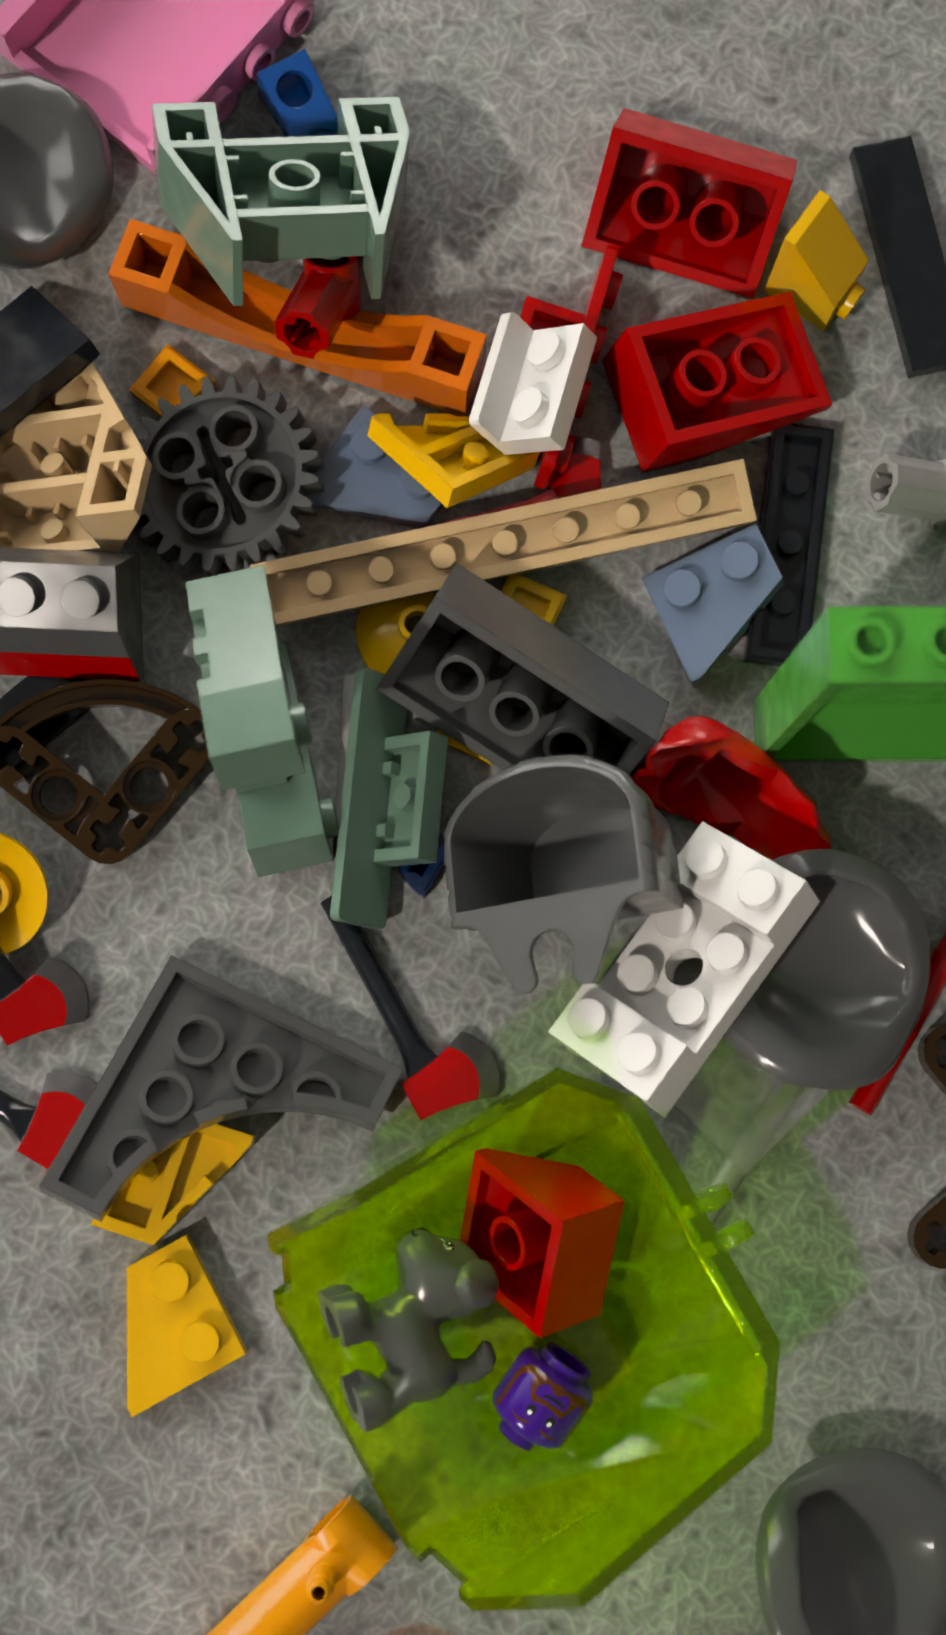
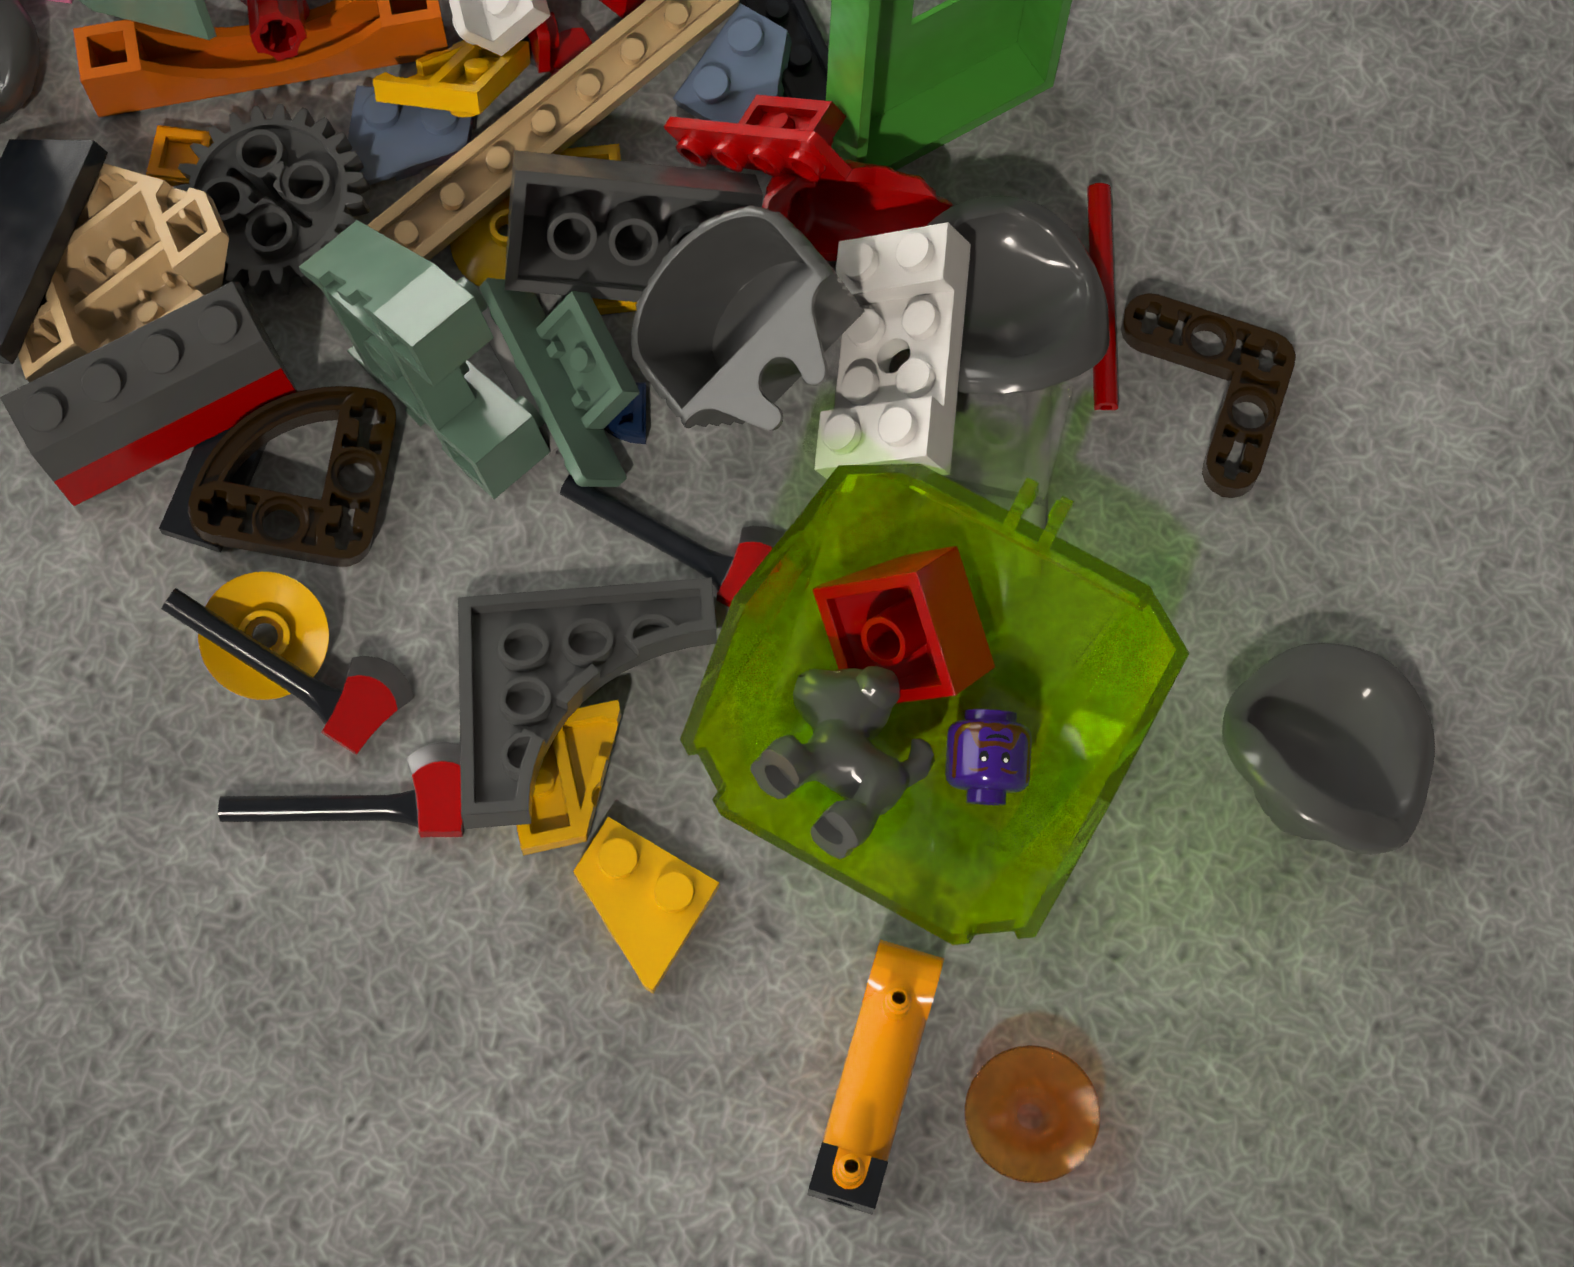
camera: 30 degrees left, 10 degrees down
(703, 690) = (771, 137): none -> red bracket

